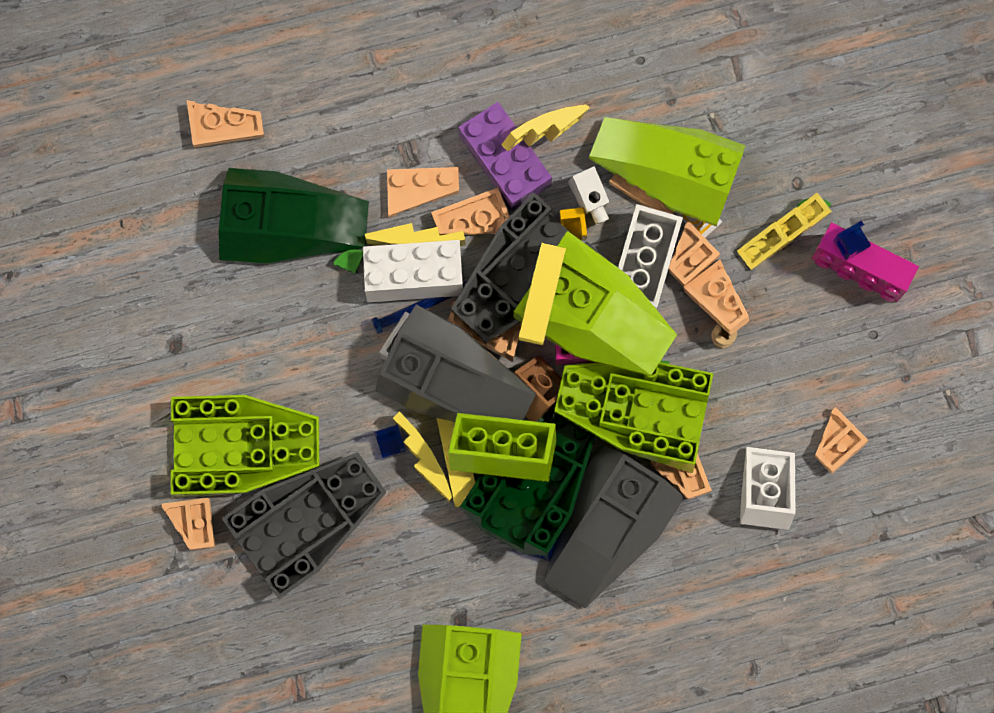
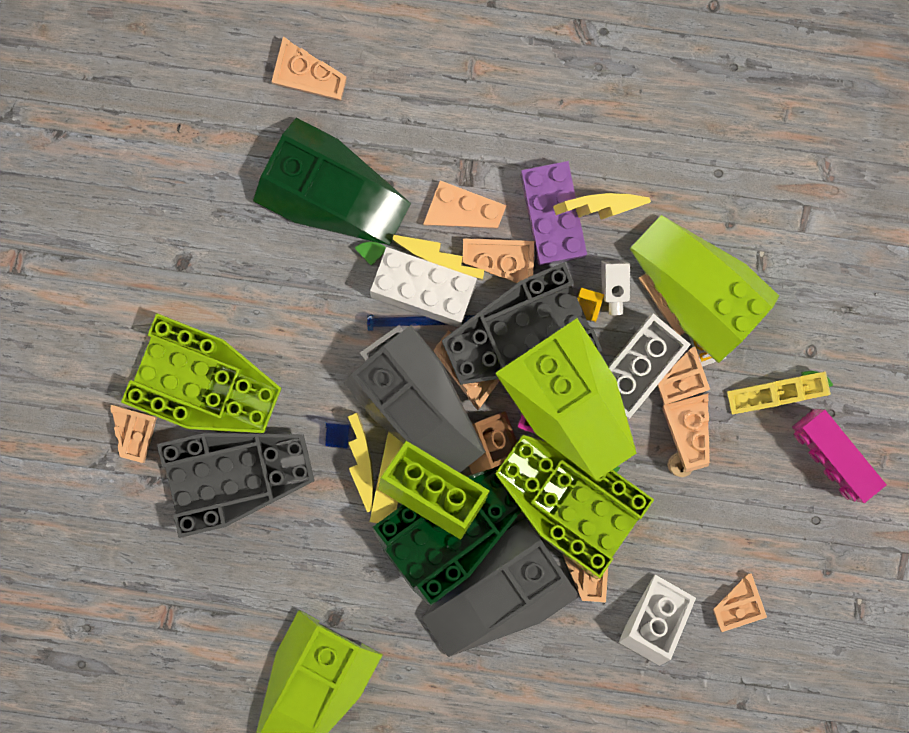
camera: 25 degrees right, 10 degrees up
(542, 294) = (527, 370): light yellow slope -> none
(852, 241) = (835, 437): clear blue panel -> none

